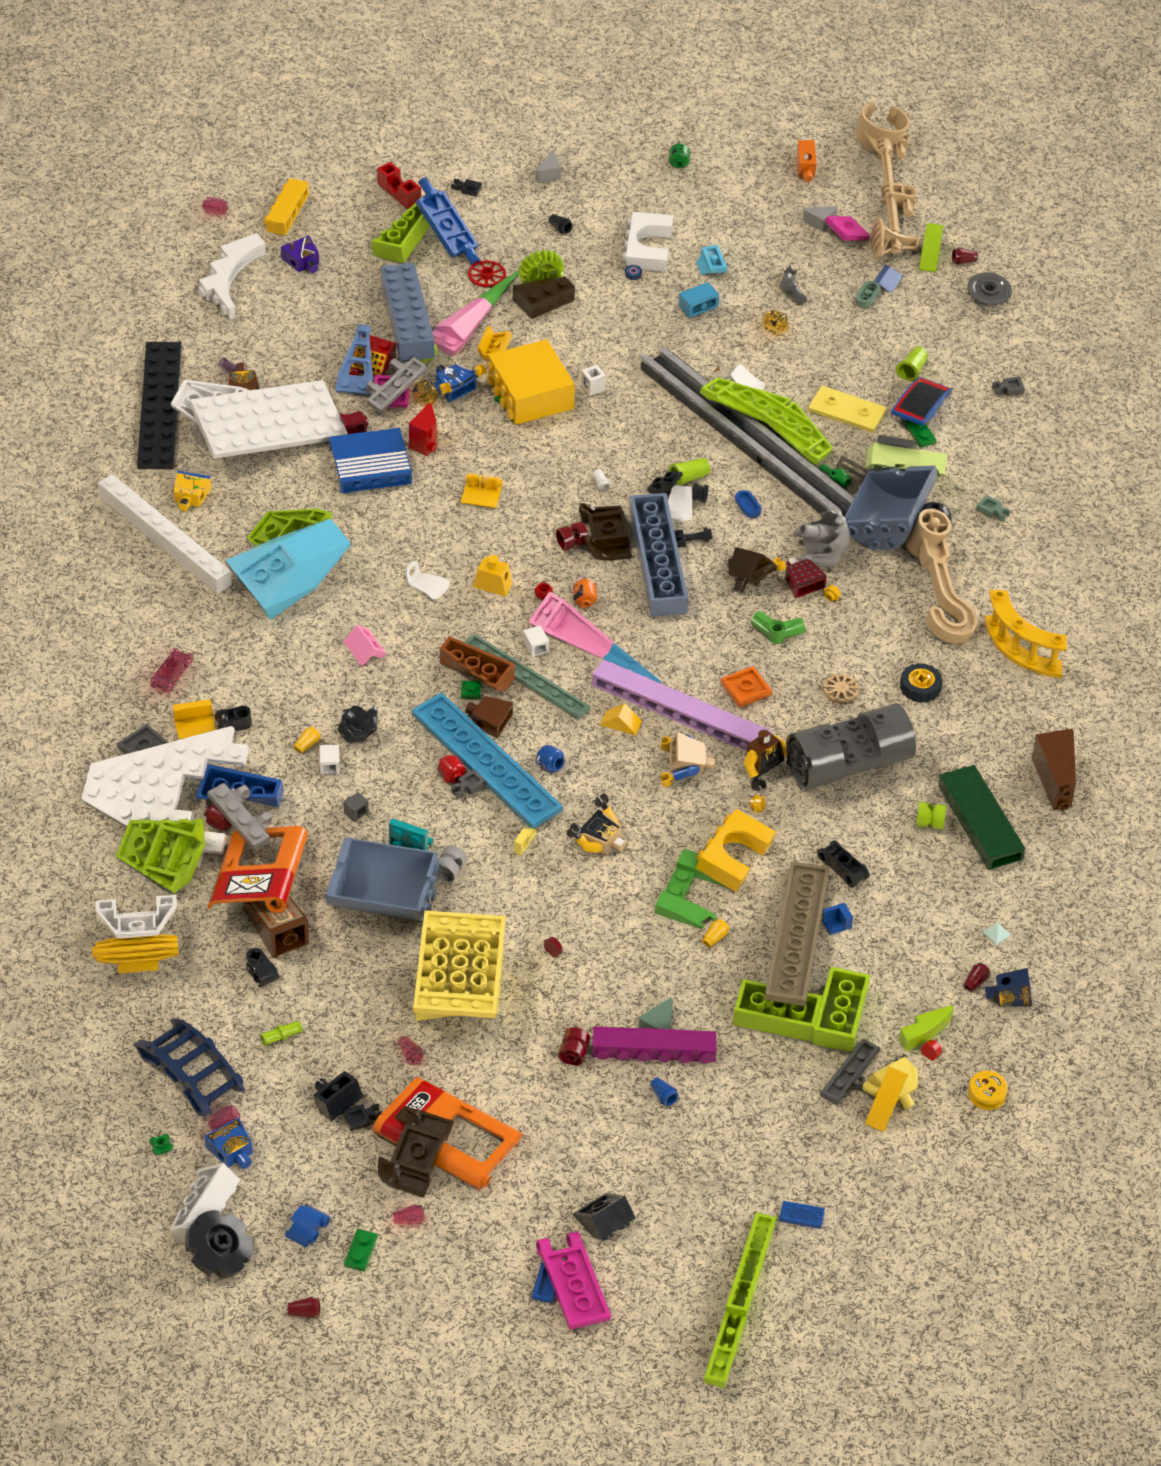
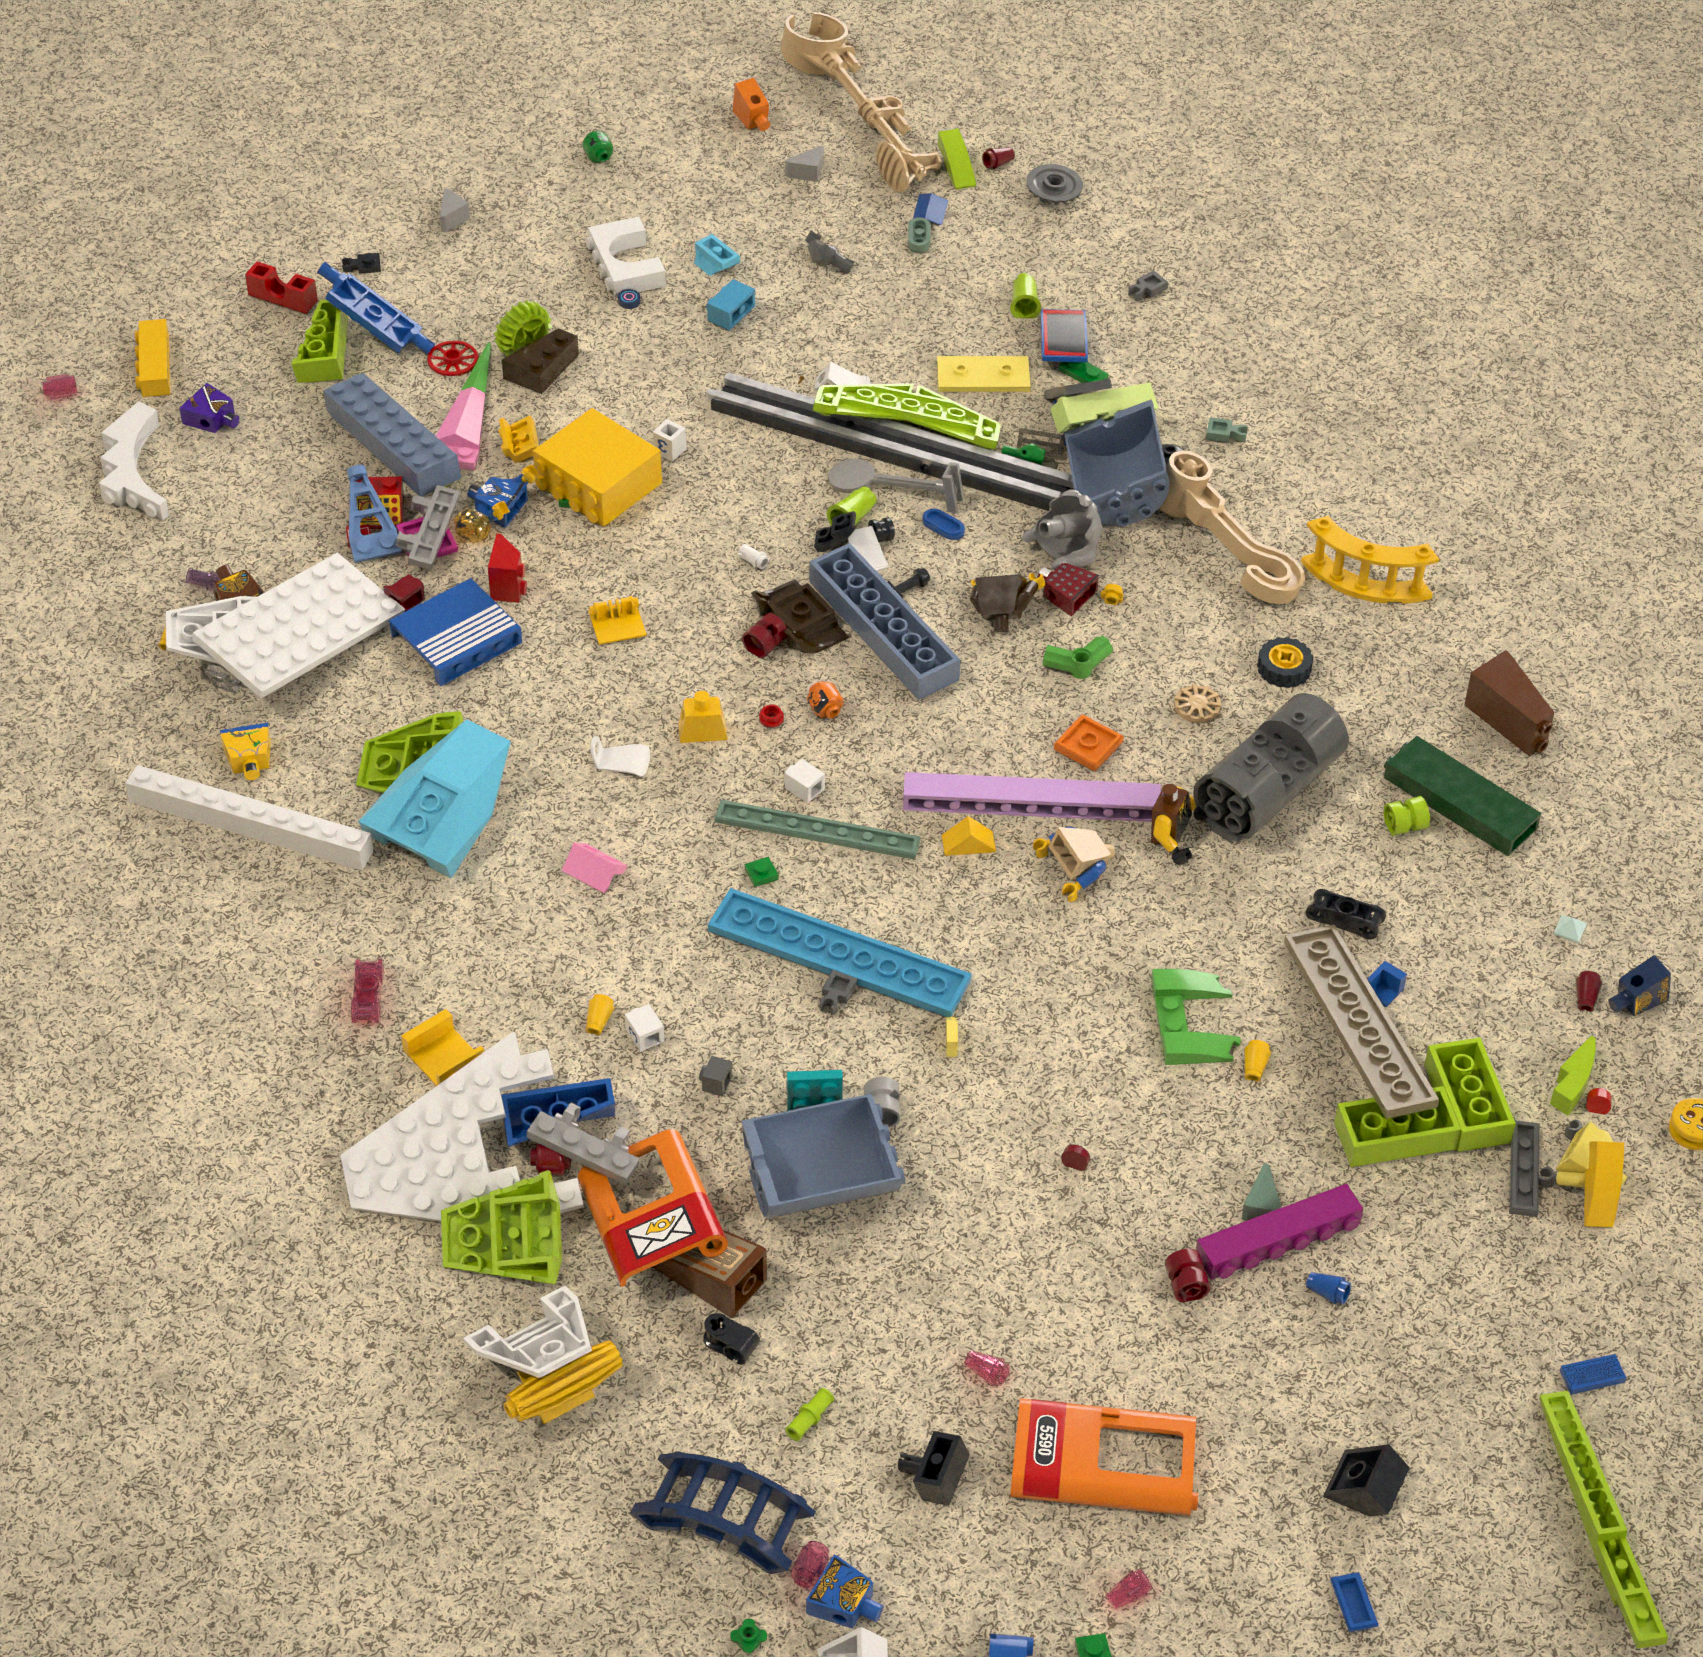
camera: 25 degrees left, 0 degrees up
(141, 739) = (387, 1099): dark grey plate -> none
(158, 417) = (139, 658): black plate -> none
(237, 717) = (488, 1023): black piece -> none
(358, 724) = (654, 970): black hair -> none
(360, 1117) = (981, 1484): black plate -> none
(415, 1151) = (1089, 1500): dark brown piece -> none
(451, 769) = (804, 981): red head -> none
(459, 965) = (994, 1232): light yellow wedge -> none
(477, 663) = (753, 835): dark orange wedge -> none
(491, 714) = (808, 893): reddish brown torso -> none
(550, 758) = (917, 920): blue head -> none
(561, 223) = (508, 270): black cone -> none
(569, 626) = (840, 748): bright pink plate -> none
(574, 1282) = (1388, 1585): dark pink hinge -> none
(600, 831) = (1038, 986): torso -> none
(713, 448) = (855, 473): none -> light grey piece
(736, 829) = (1199, 966): yellow arch -> none
(757, 803) = (1197, 879): yellow plate -> none
(775, 322) = (837, 301): clear yellow head -> none
(847, 228) = (847, 167): dark pink plate -> none

